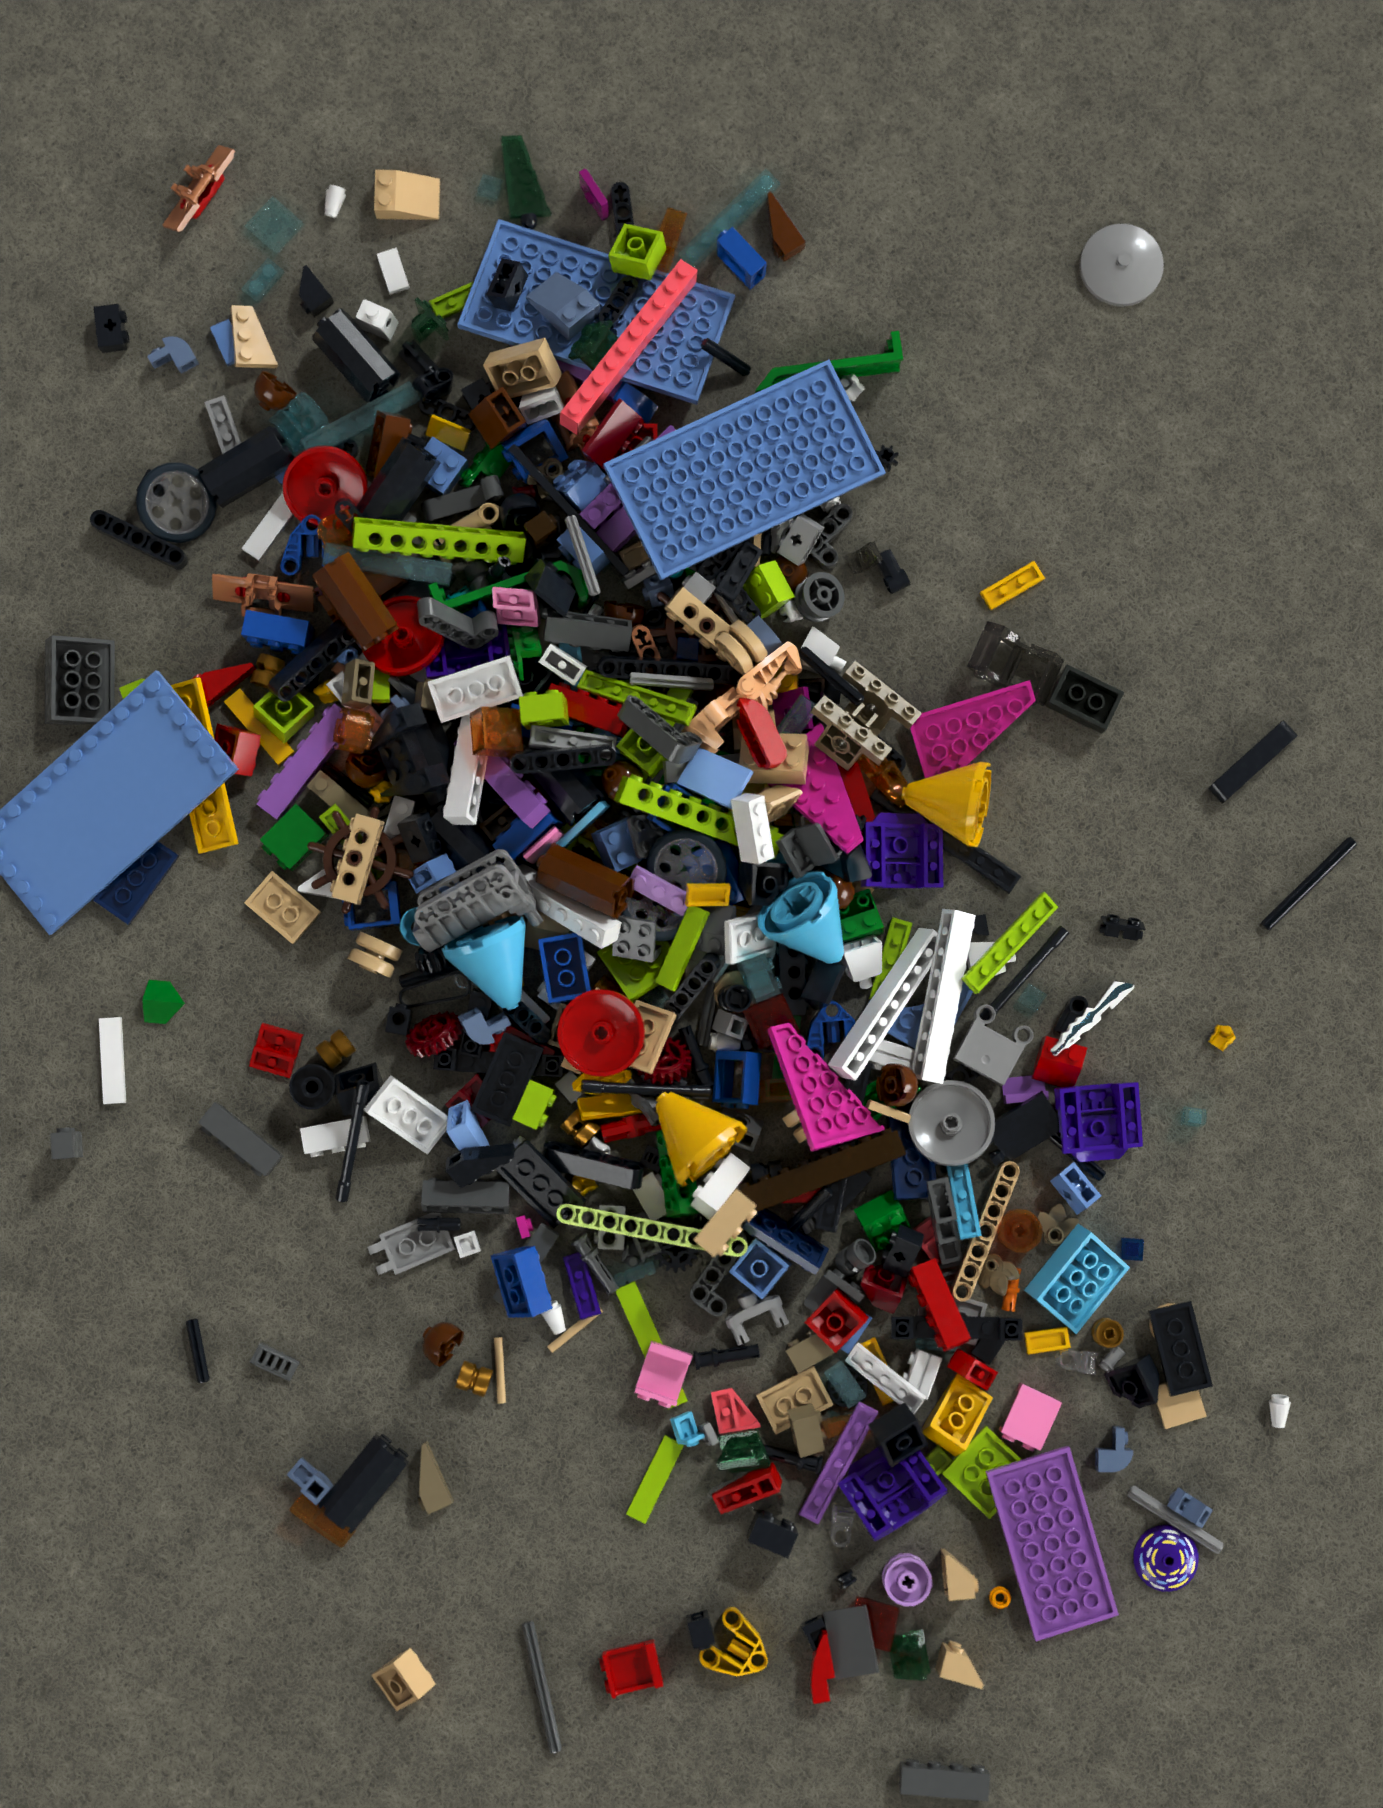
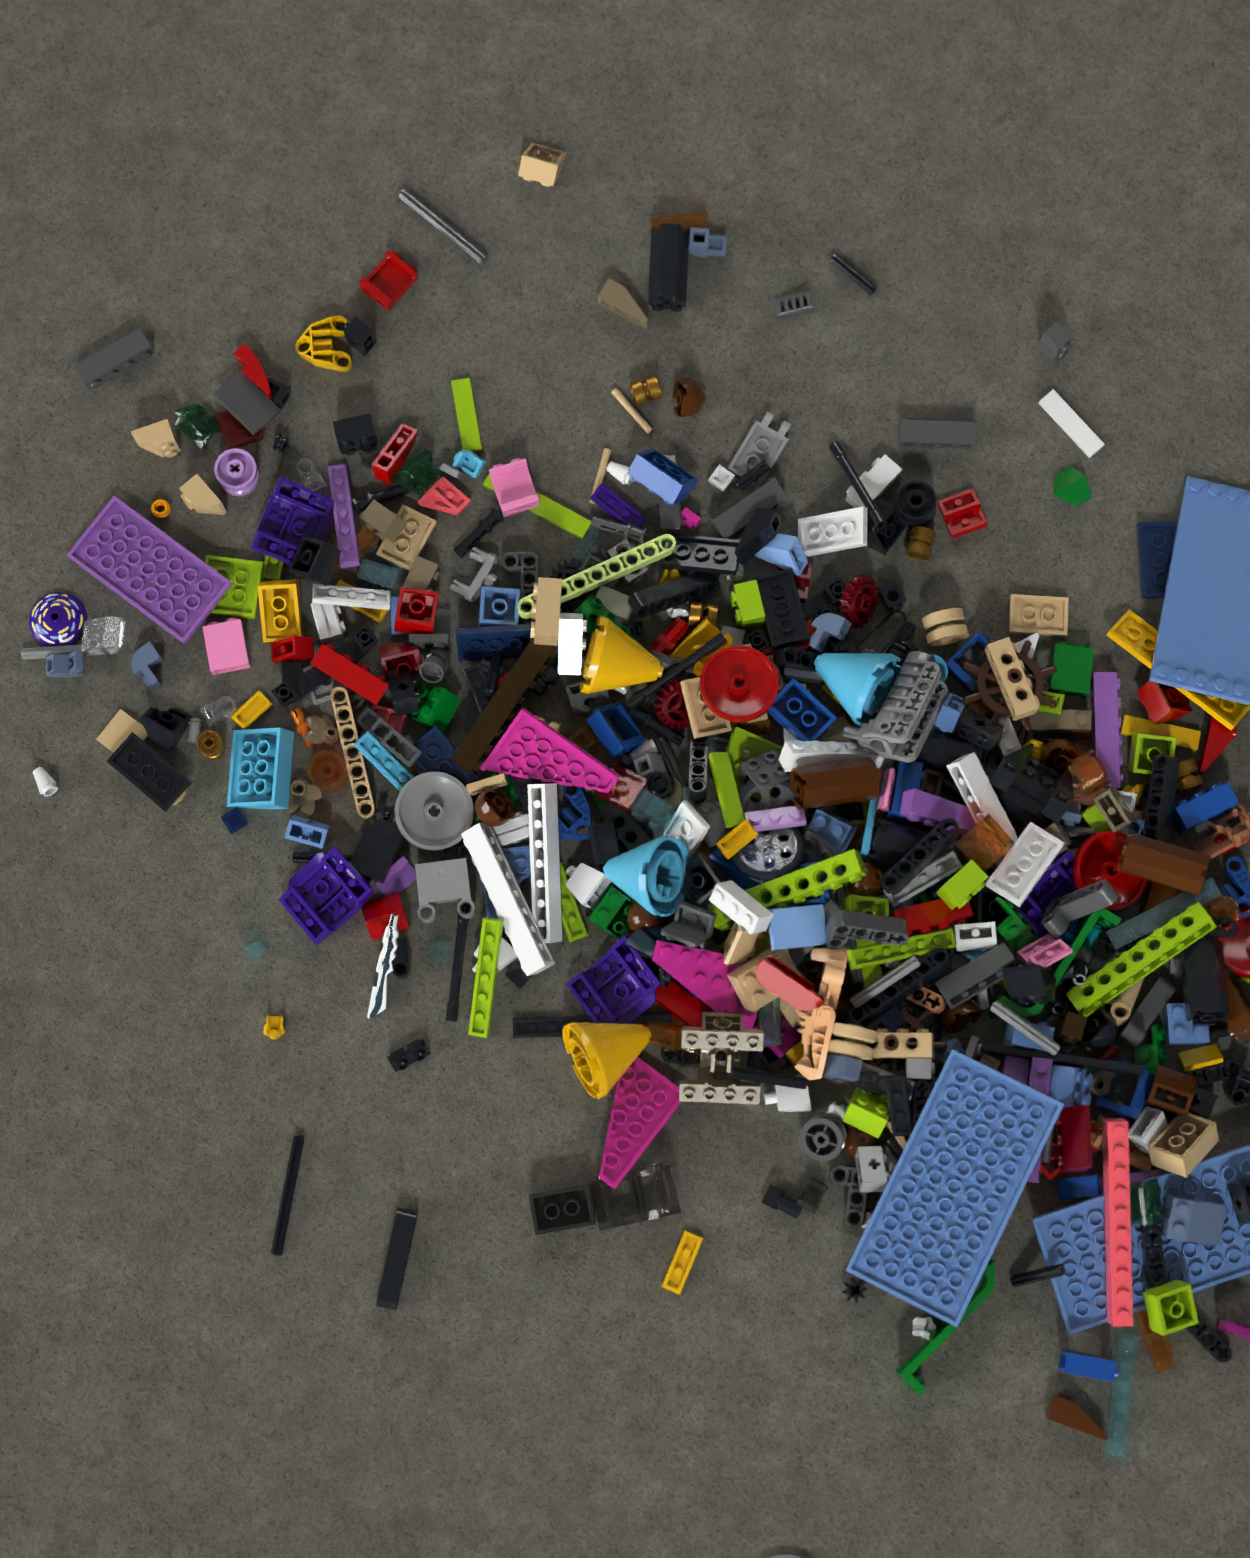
camera: 150 degrees right, 5 degrees down
(1136, 1510) = (103, 635): none -> clear slope

